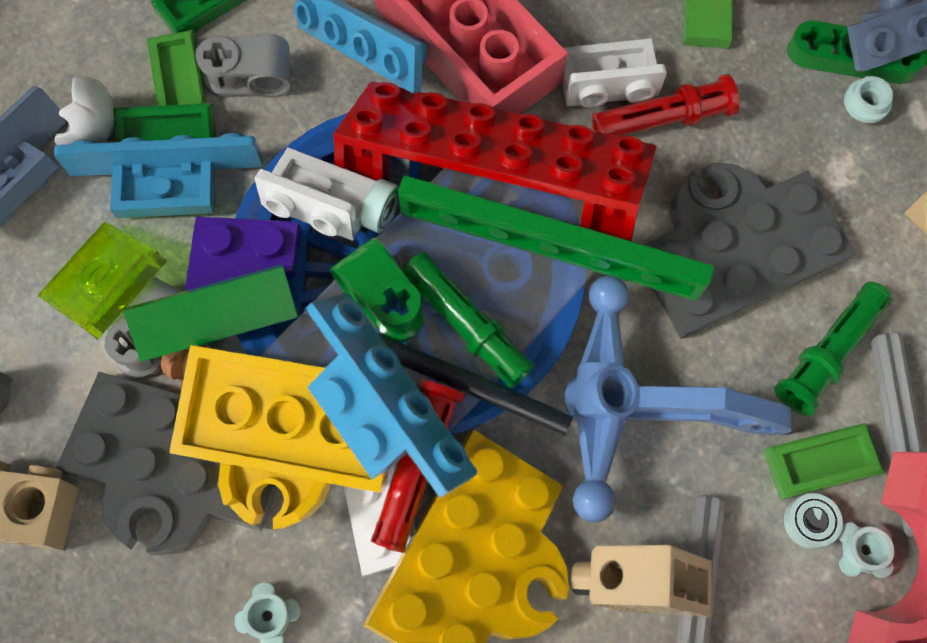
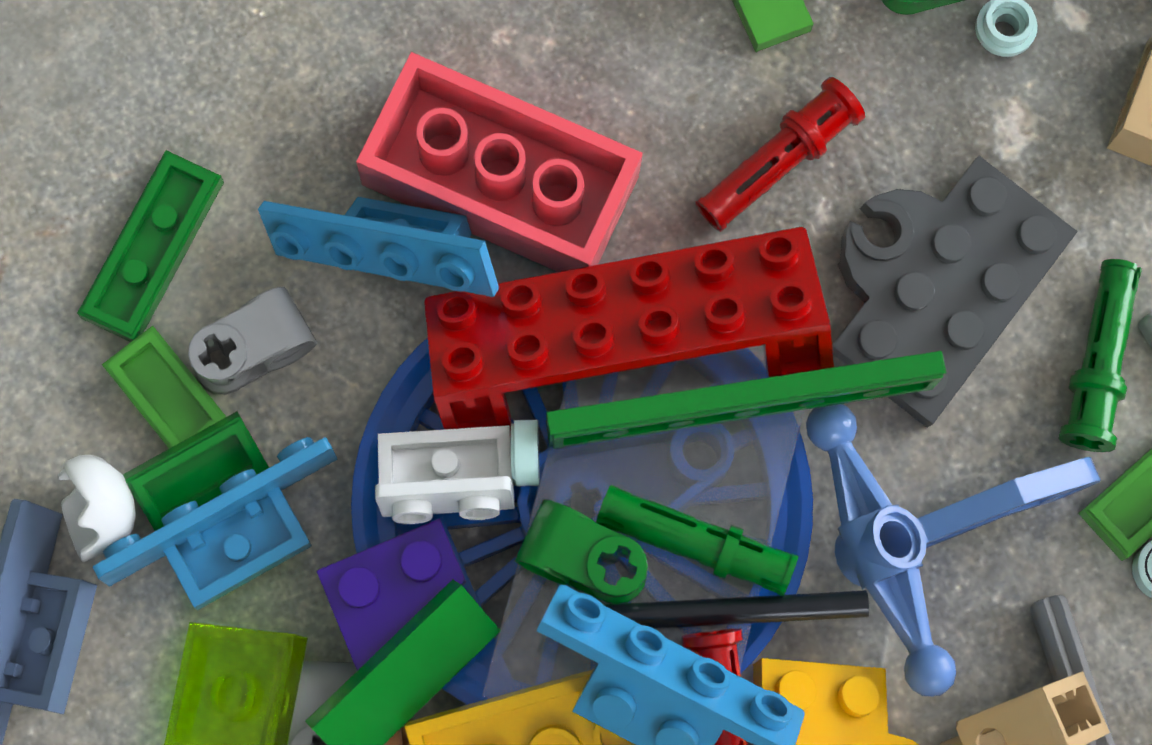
camera: 30 degrees left, 5 degrees up
(612, 73) = (694, 138): white bracket -> none

